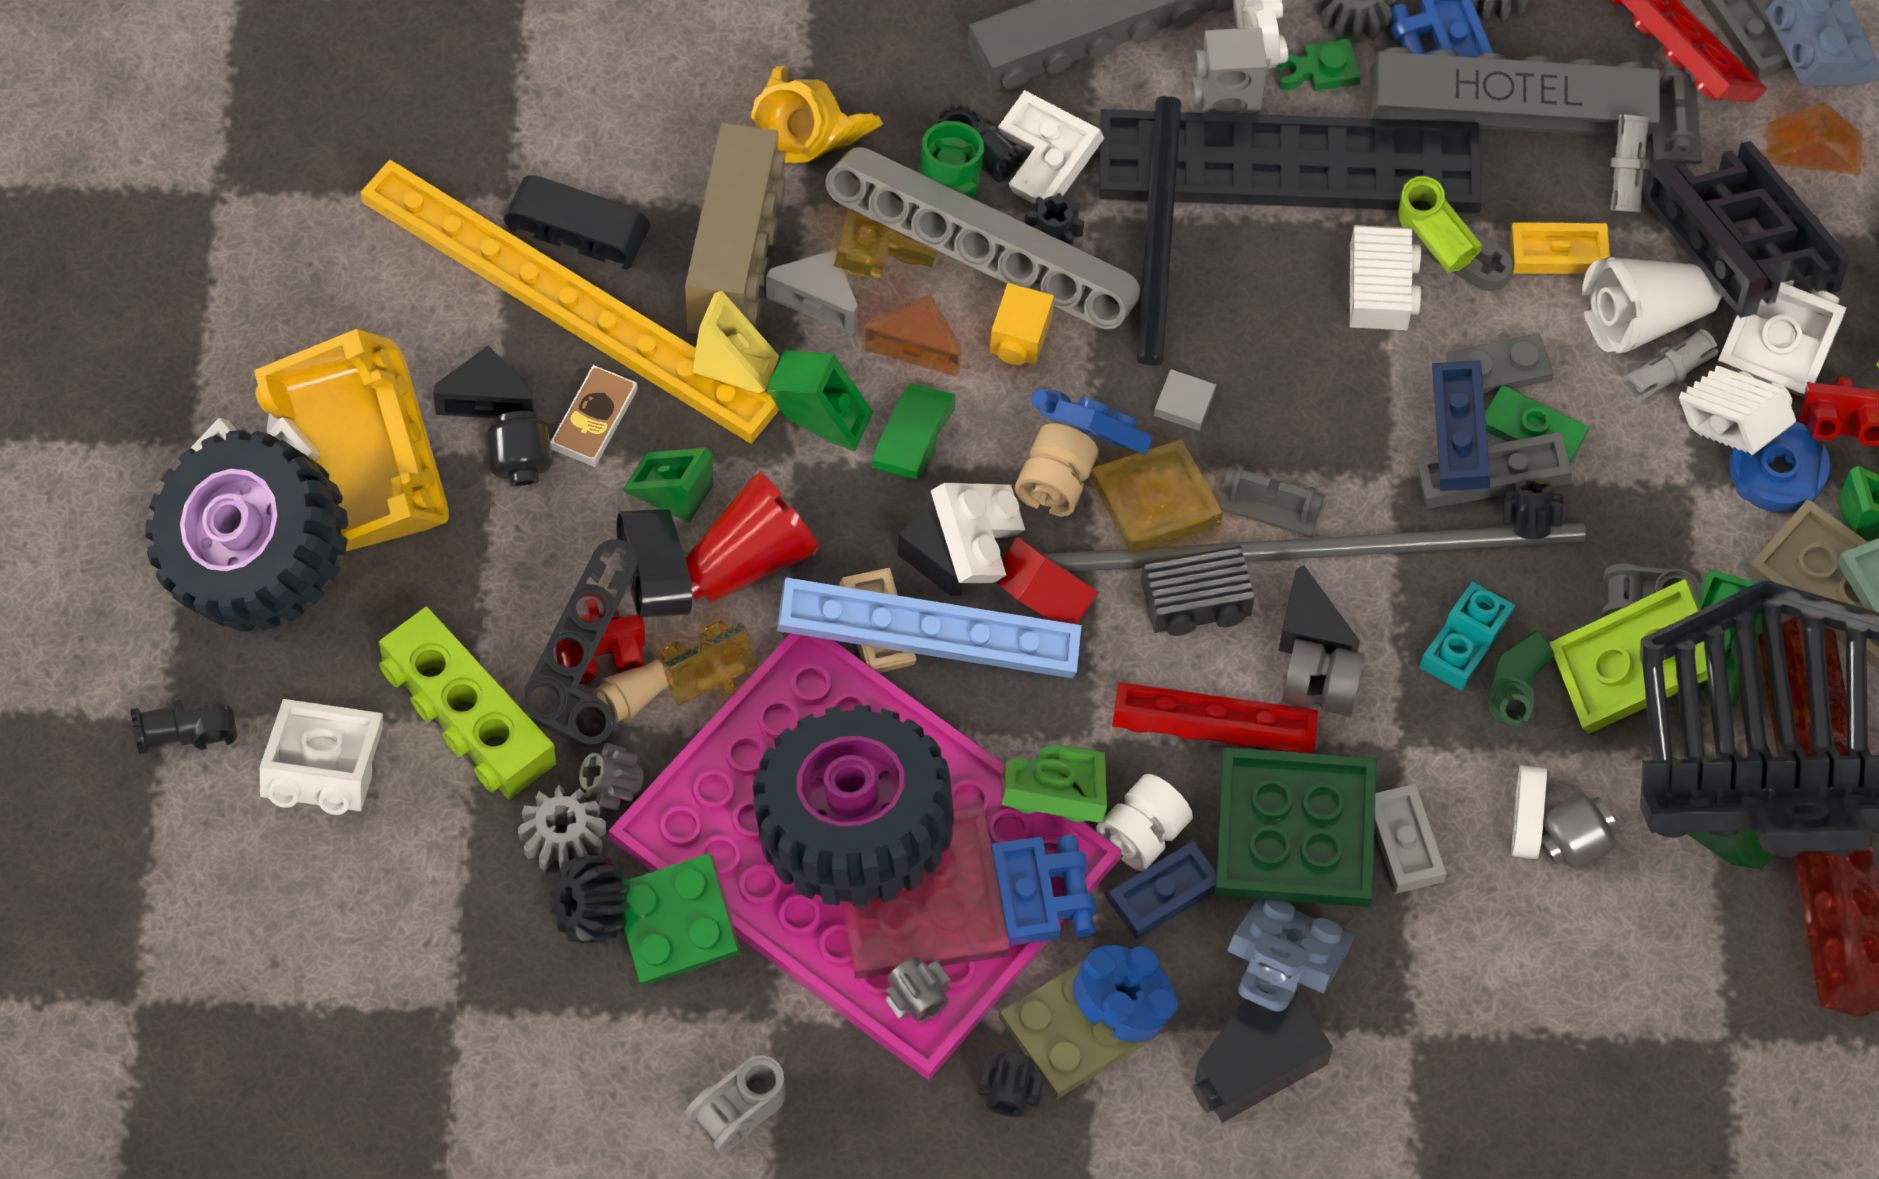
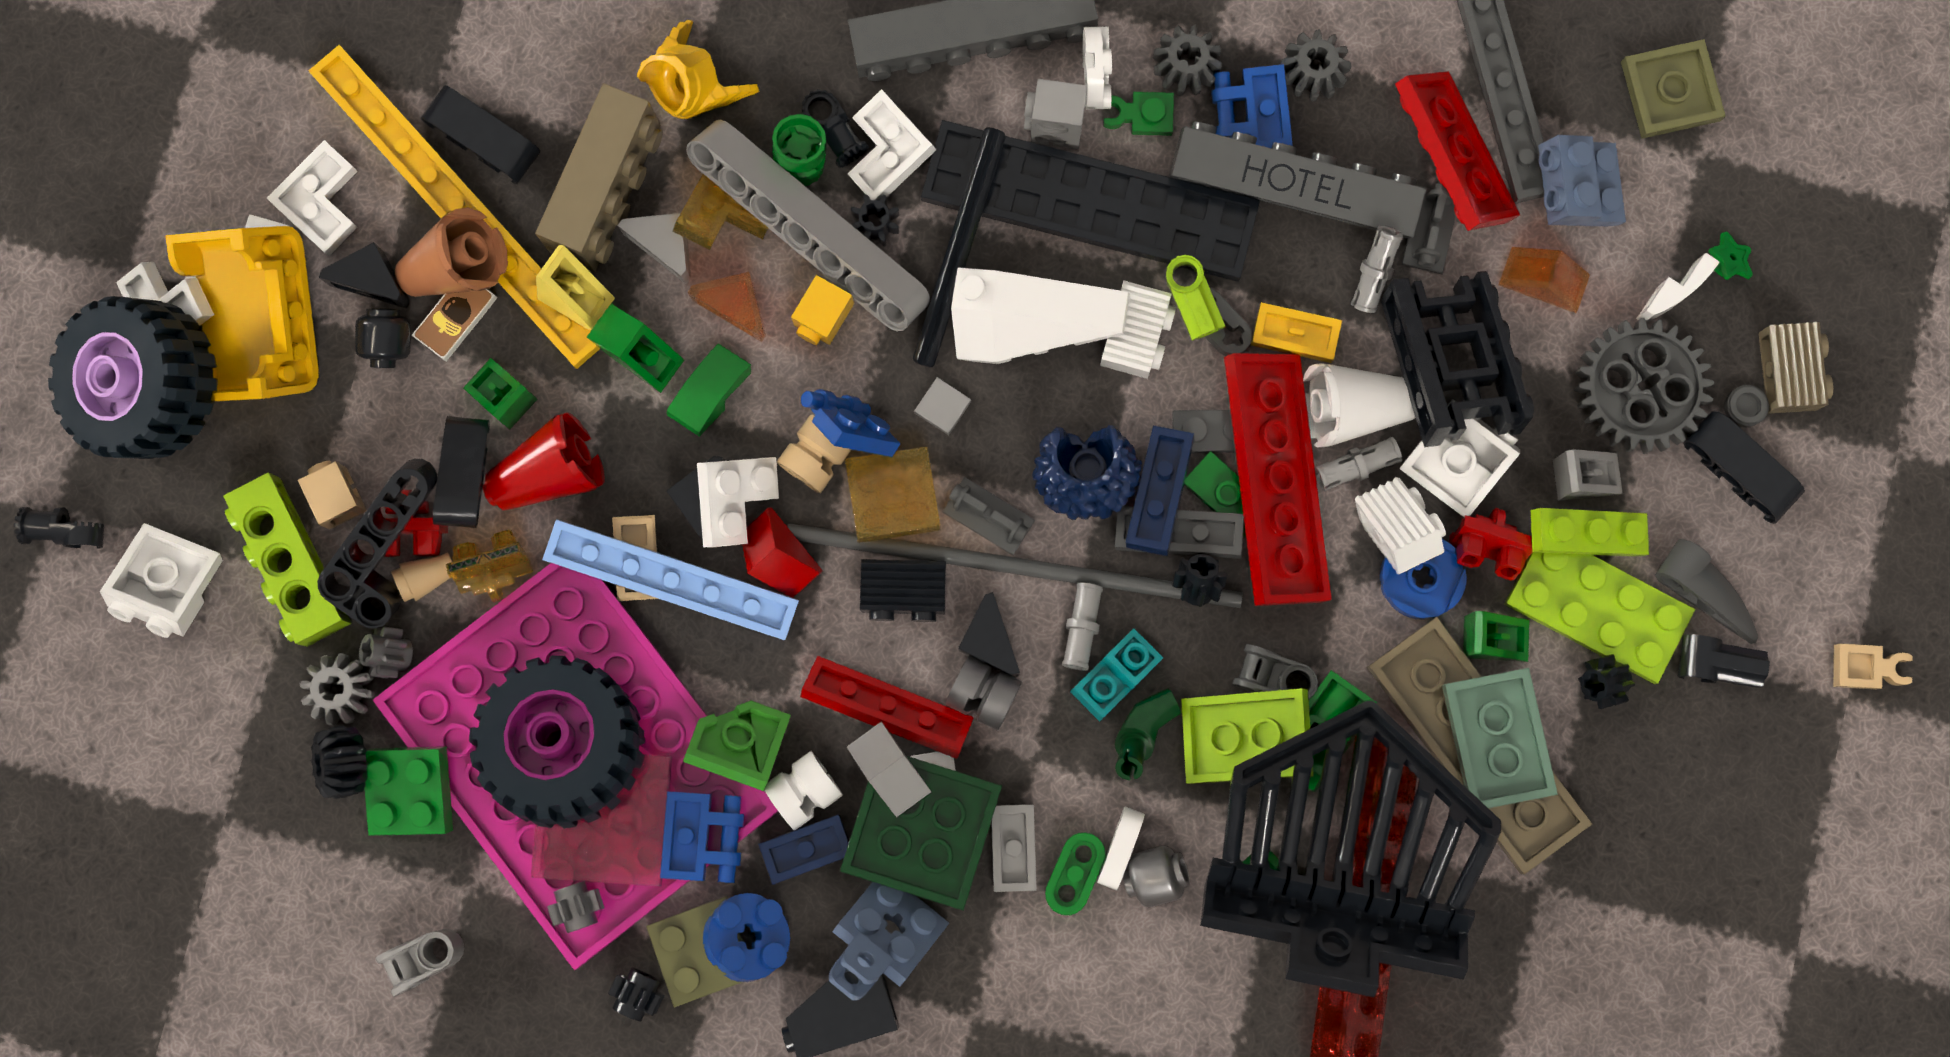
camera: 20 degrees right, 20 degrees up
(395, 313) = (306, 197): none -> white plate
(502, 623) = (330, 494): none -> tan brick
(584, 342) = (454, 257): none -> nougat cone
(1245, 761) = (888, 769): none -> light grey slope
(1247, 279) = (1019, 315): none -> white wedge
(1380, 430) = (1087, 475): none -> dark blue hair
(1413, 591) = (1082, 626): none -> light grey pin
(1484, 853) = (1075, 873): none -> green plate
(1587, 393) = (1277, 479): none -> red plate

